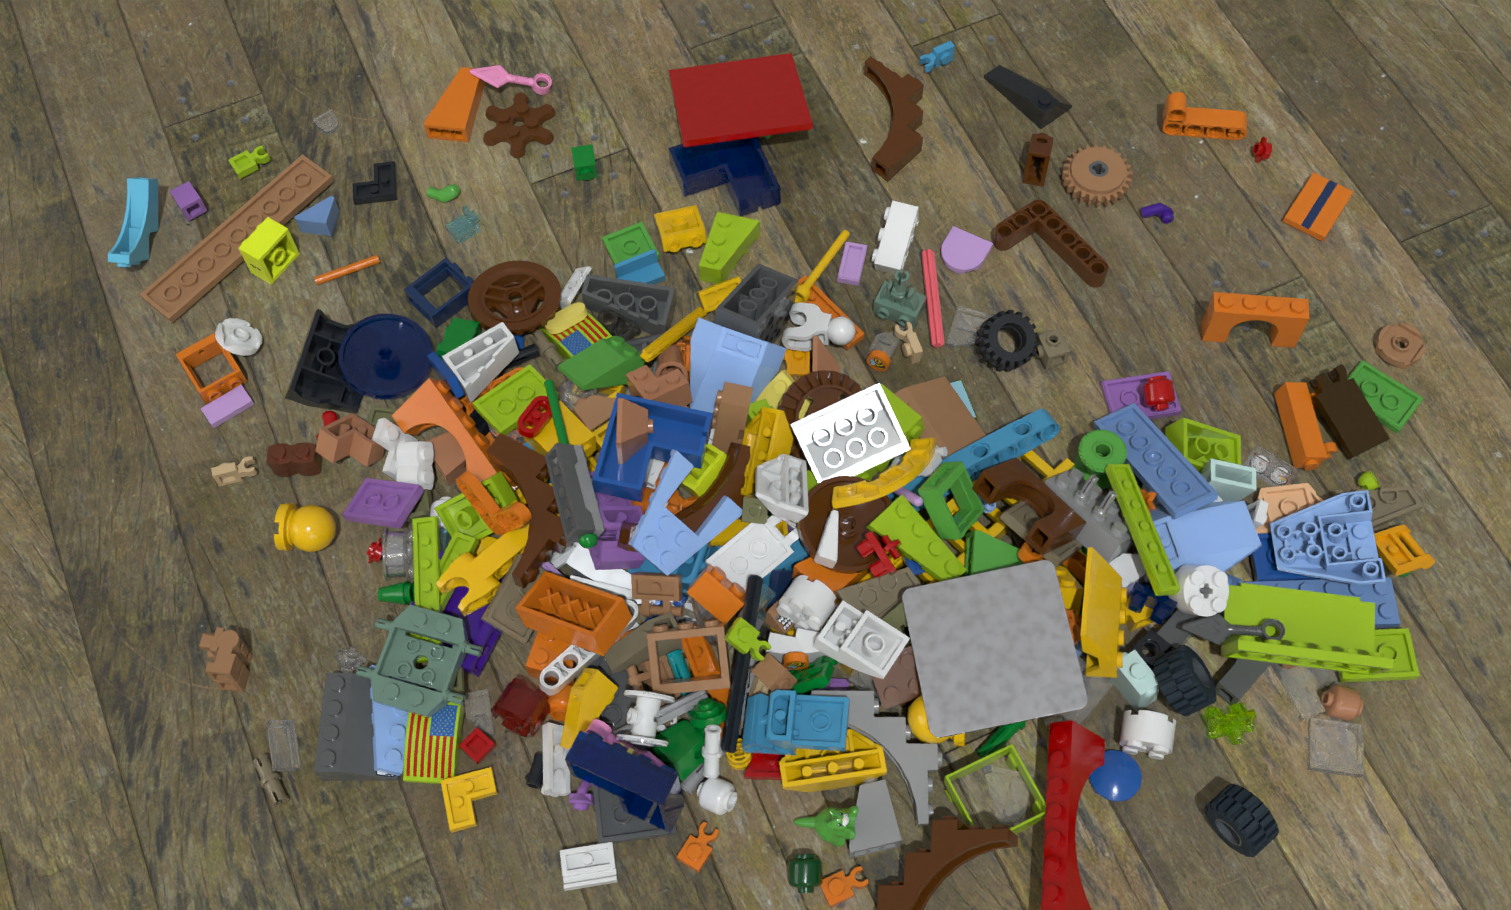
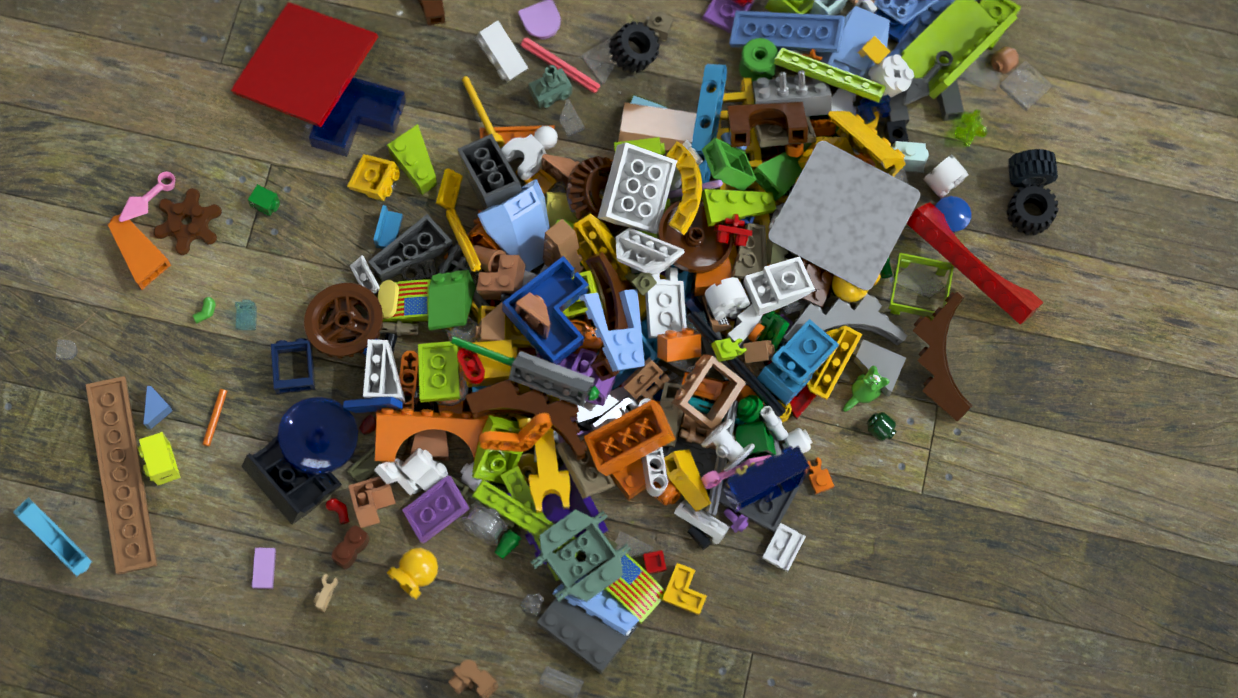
camera: 60 degrees left, 10 degrees up
(188, 201) = (58, 489): medium lavender brick -> none
(192, 357) = (205, 558): orange window -> none
(238, 337) = (215, 525): white tile -> none
(247, 163) = (56, 429): lime plate -> none
(375, 551) = (465, 537): red plate -> none
(381, 189) = (162, 350): black tile -> none
(457, 334) = (346, 380): green brick -> none
(521, 708) = (654, 517): clear red brick -> none
(628, 243) = (360, 219): bright green plate -> none
(828, 546) = (704, 254): white slope -> none
(839, 888) = (903, 414): orange plate -> none
(852, 263) = (492, 92): lavender tile -> none
(878, 360) = (580, 132): orange tile -> none
(911, 346) = (586, 104): tan plate -> none
(1185, 680) = (933, 130): black wheel -> none
(1209, 549) = (874, 50): none -> yellow panel
(1211, 842) = (1039, 197): none -> black tyre

